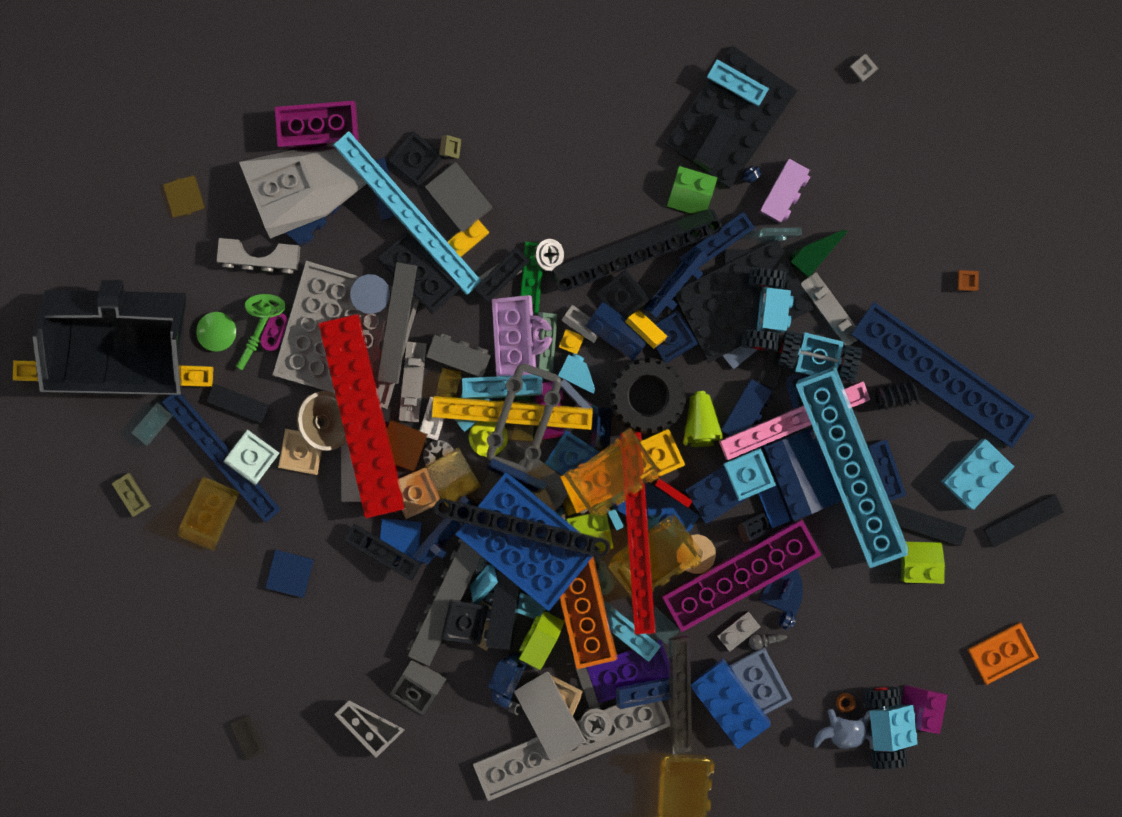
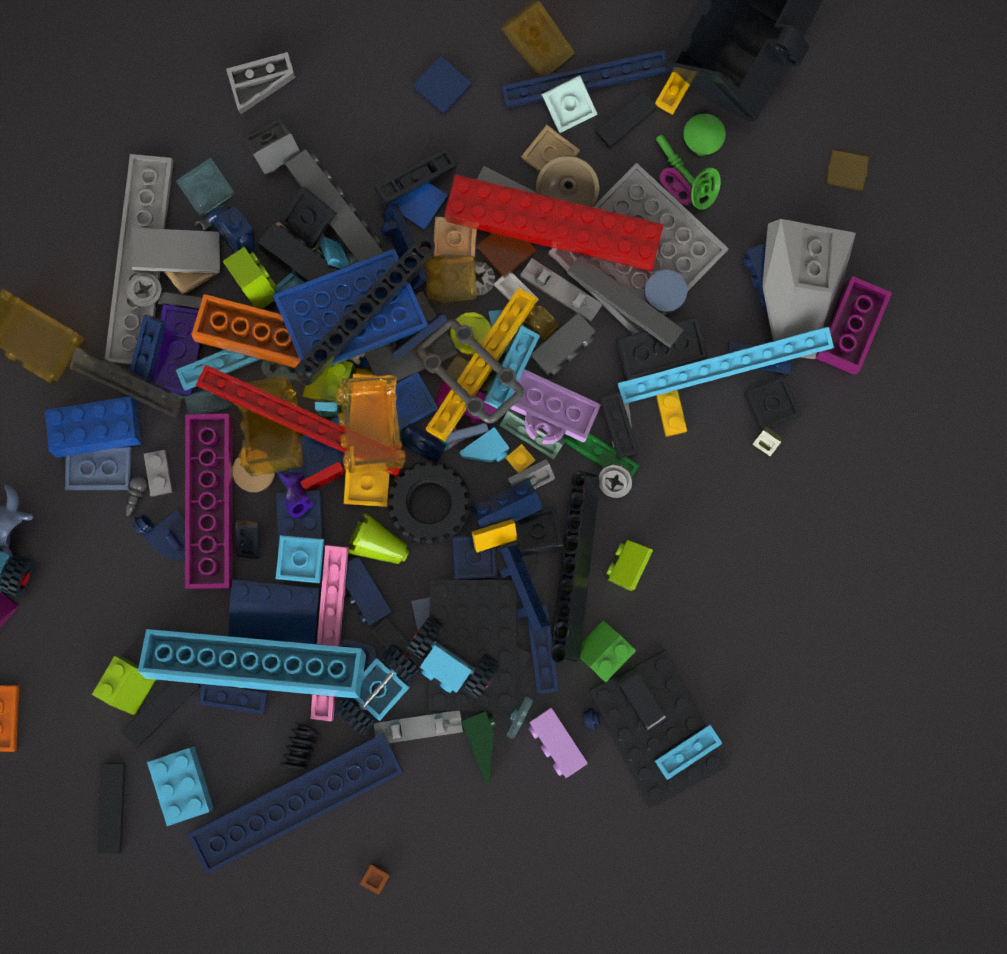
camera: 120 degrees right, 5 degrees down
(152, 424) = (648, 31): clear light blue plate -> none
(283, 257) = (743, 230): light grey arch -> none
(459, 197) = (714, 424): dark grey tile -> none
(481, 724) = (205, 187): none -> clear light blue plate
(612, 207) = (629, 565): none -> lime slope
(705, 502) = (295, 499): none -> dark purple animal
(774, 506) = (257, 570): blue tile -> none
(845, 709) = (26, 539): dark orange plate -> none
(863, 68) = (639, 887): light grey plate -> none

